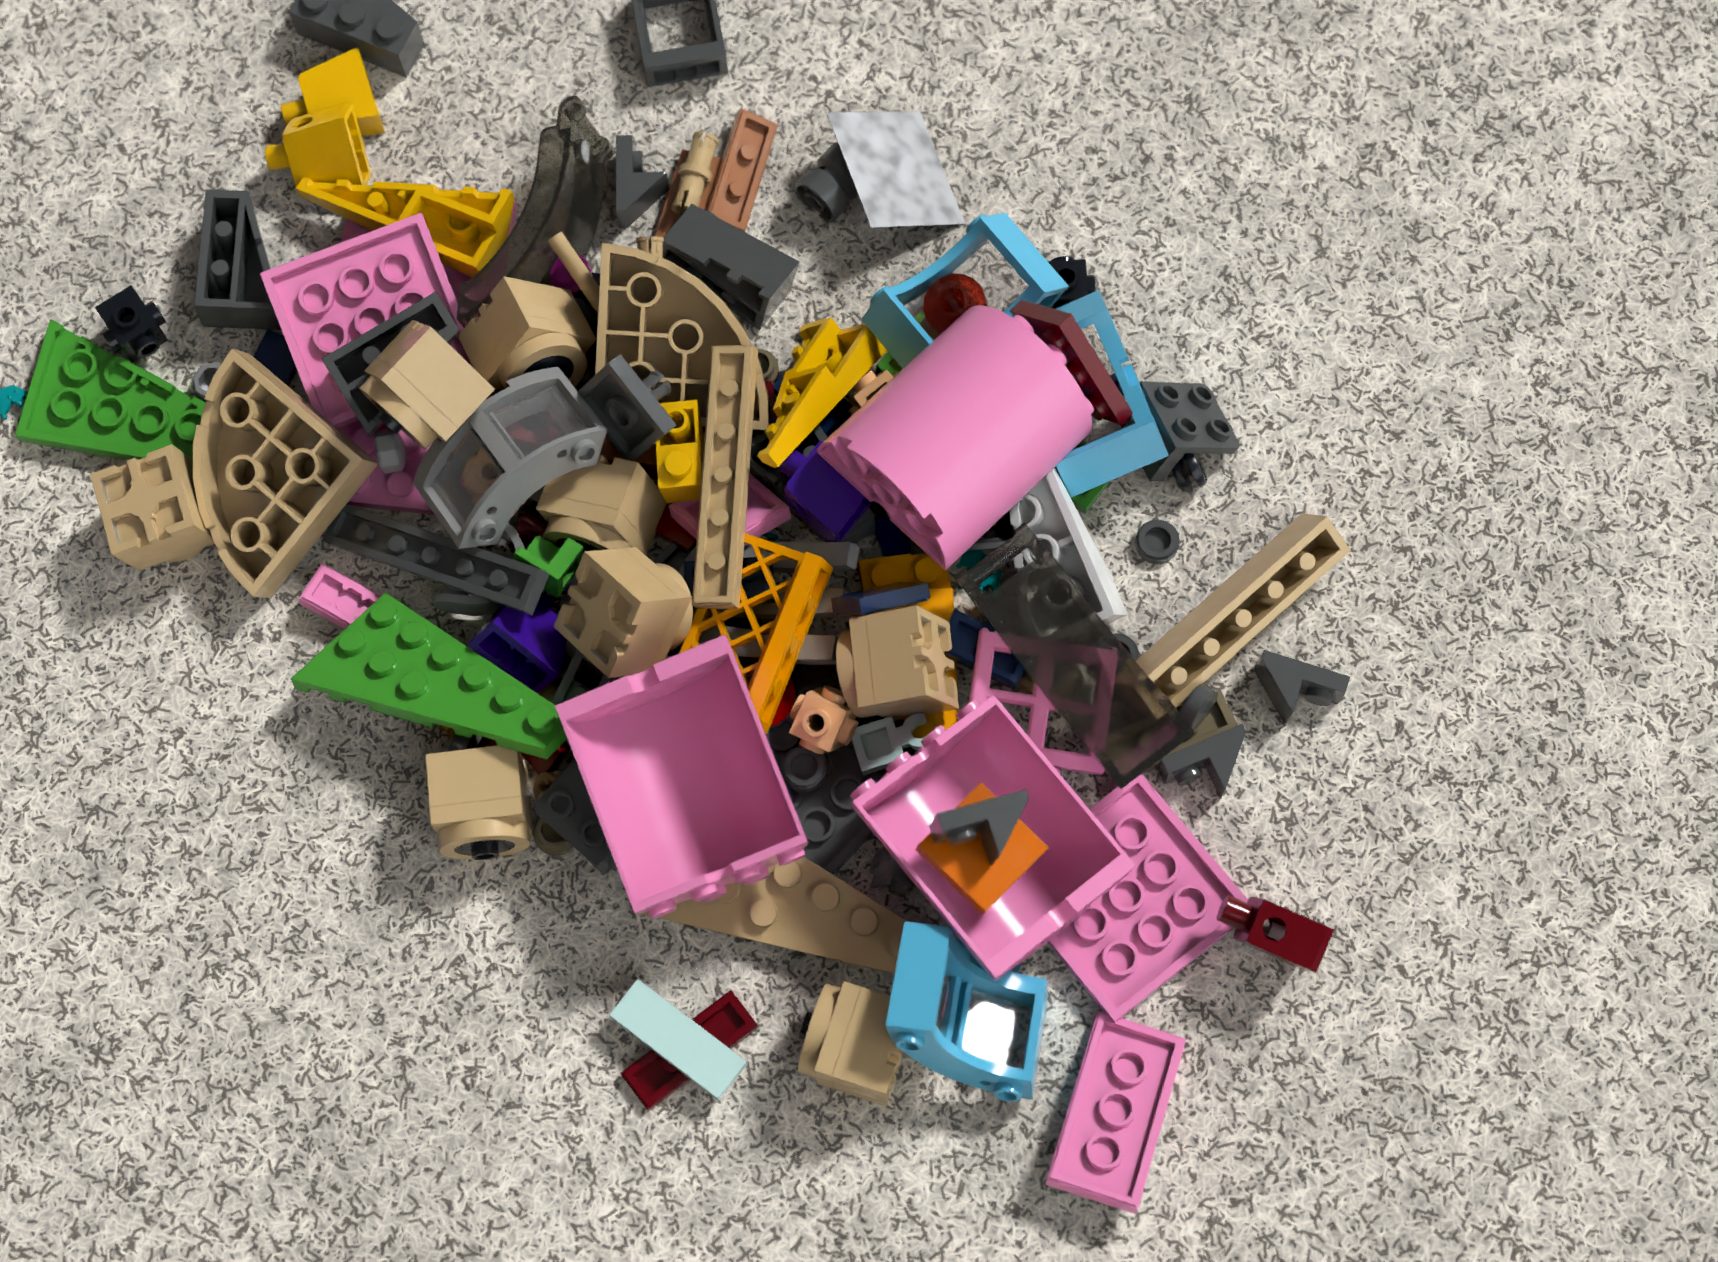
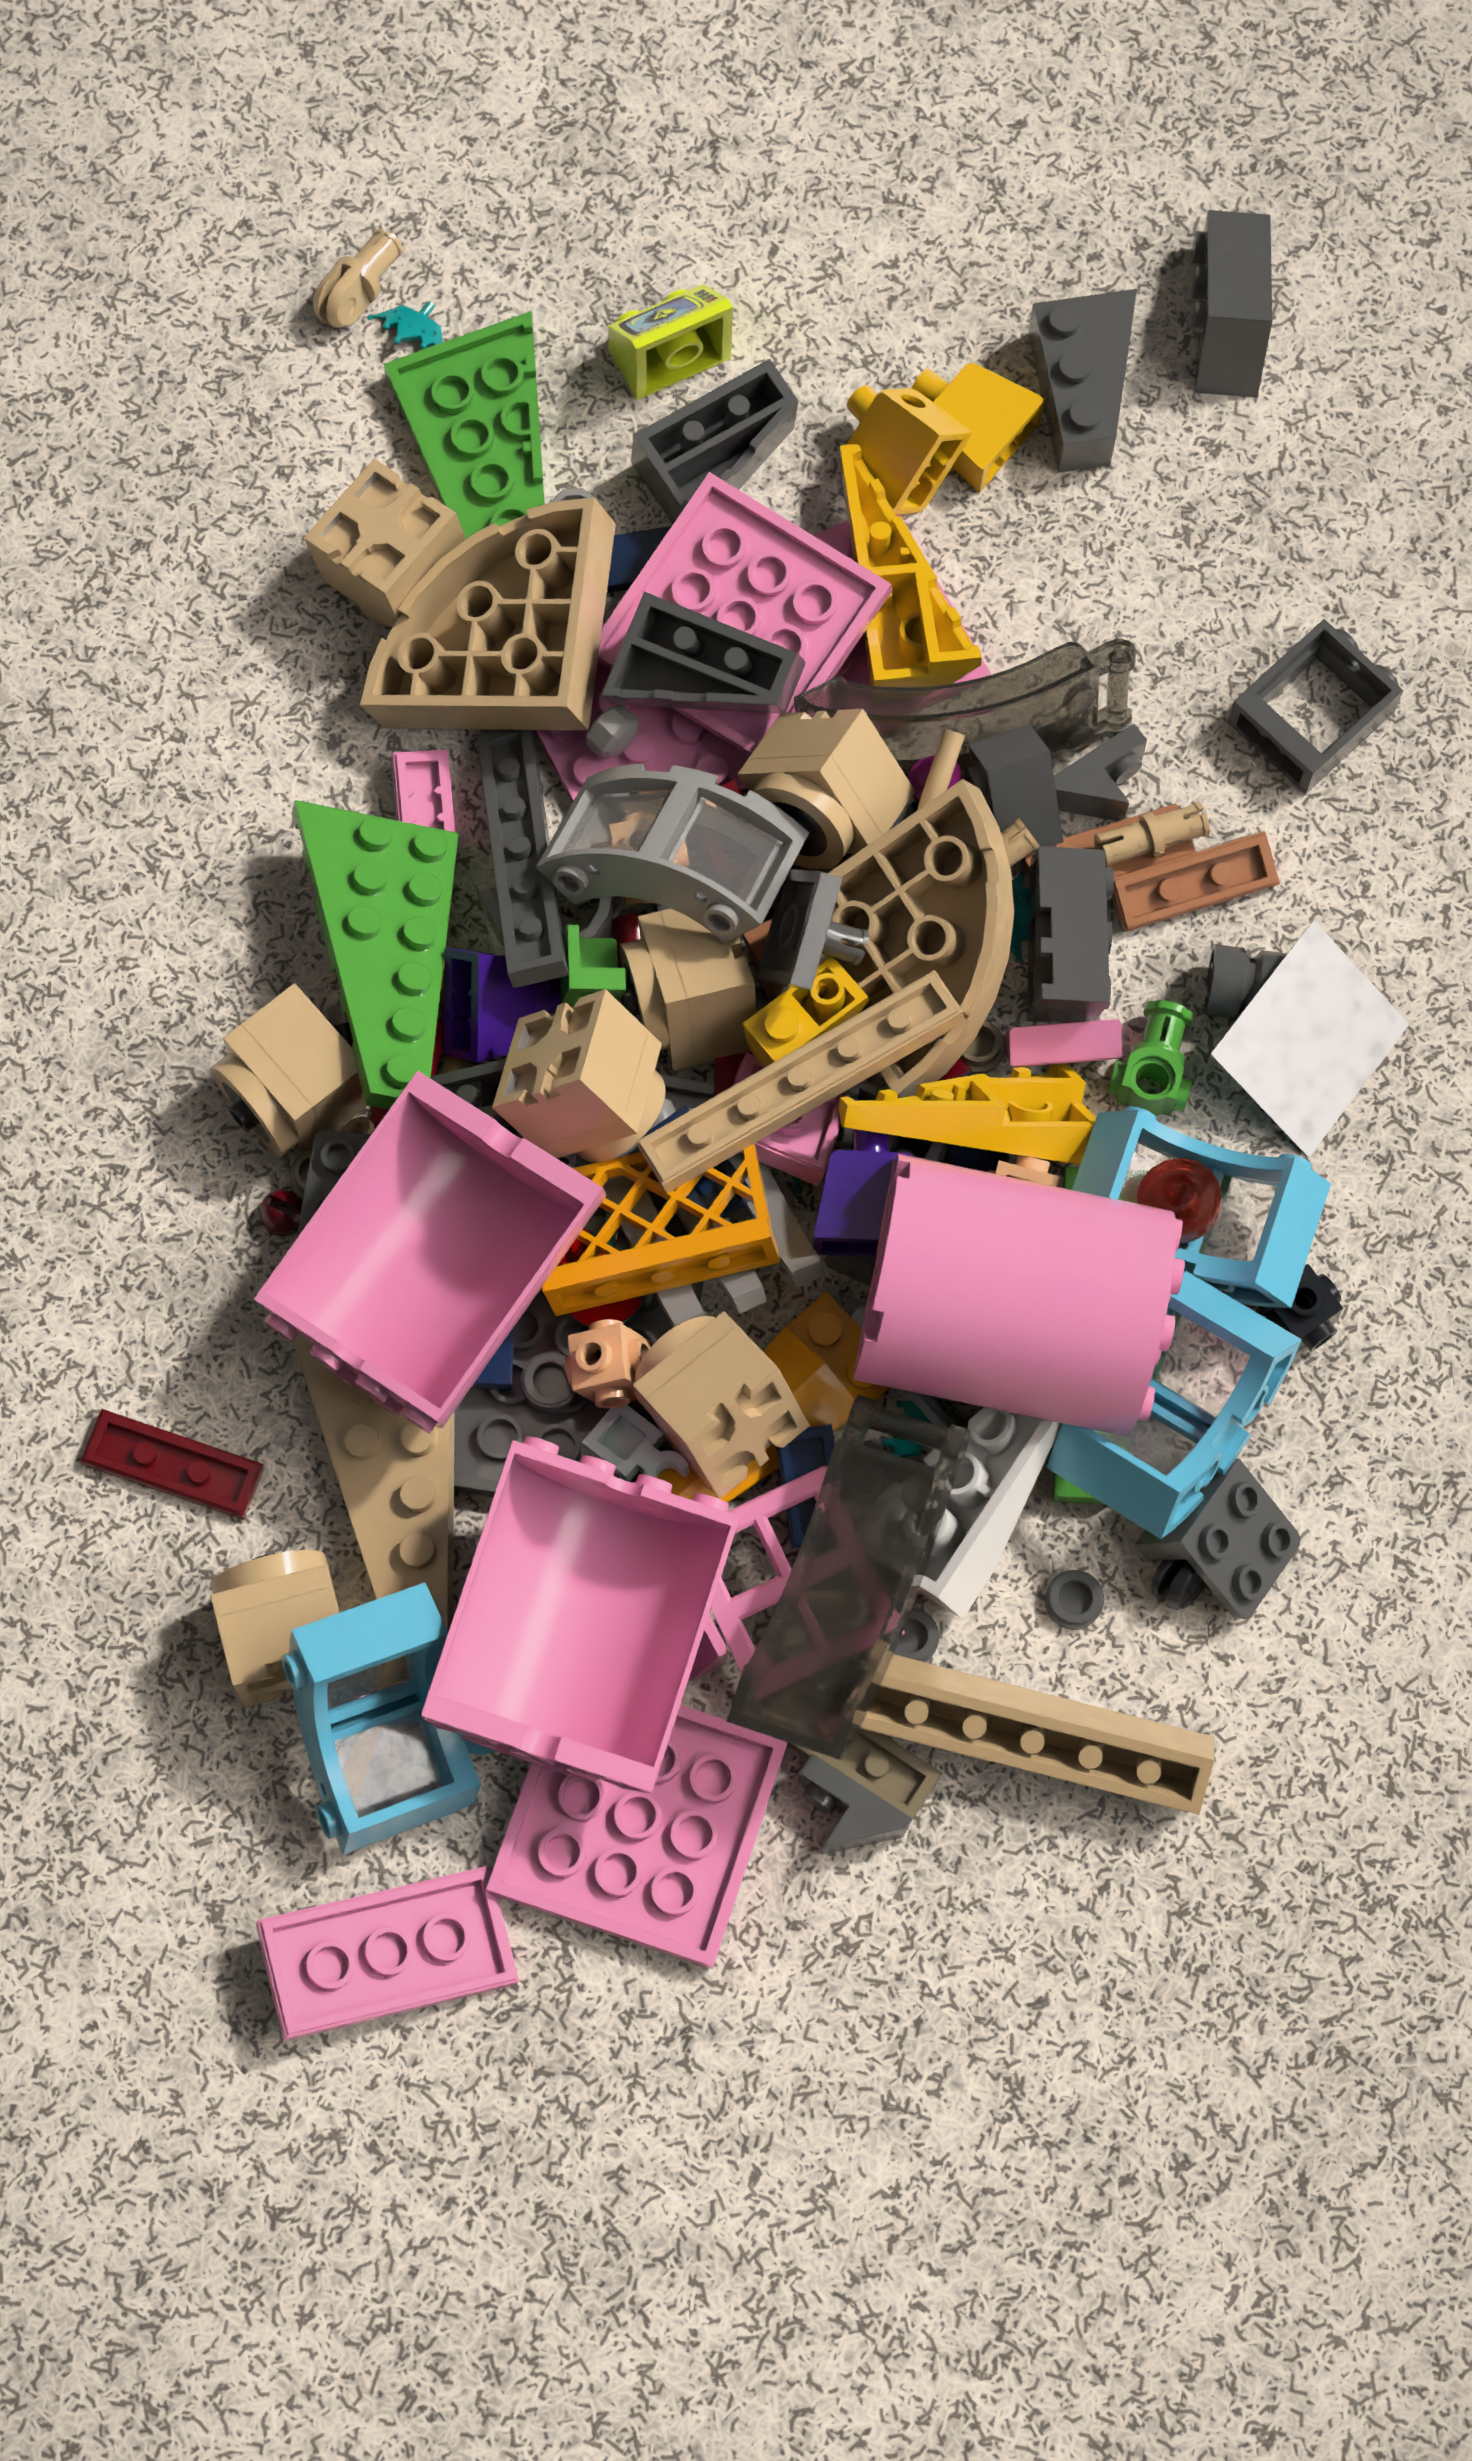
camera: 50 degrees right, 0 degrees up
(132, 324) = (579, 391): black brick -> none
(138, 243) = (672, 339): none -> neon yellow slope
(423, 386) = (679, 709): tan piece -> none
(568, 877) = (275, 1219): none -> dark red hinge
(605, 218) = (1017, 782): none -> dark grey brick
(678, 1039) = (171, 1443): light aqua tile -> none
(796, 314) = (1064, 1043): none -> bright pink slope
(843, 267) = (1156, 1061): none -> bright green connector
(880, 598) = (778, 1333): dark blue tile -> none
(967, 864) = (554, 1610): orange tile -> none
(991, 818) = (589, 1598): dark grey slope -> none
(1082, 362) = (1184, 1368): dark red wing -> none
(1198, 705) = (899, 1756): dark grey tile -> none
(1286, 678) = (1006, 1839): dark grey slope -> none
(1289, 935) = (688, 2024): dark red torso -> none

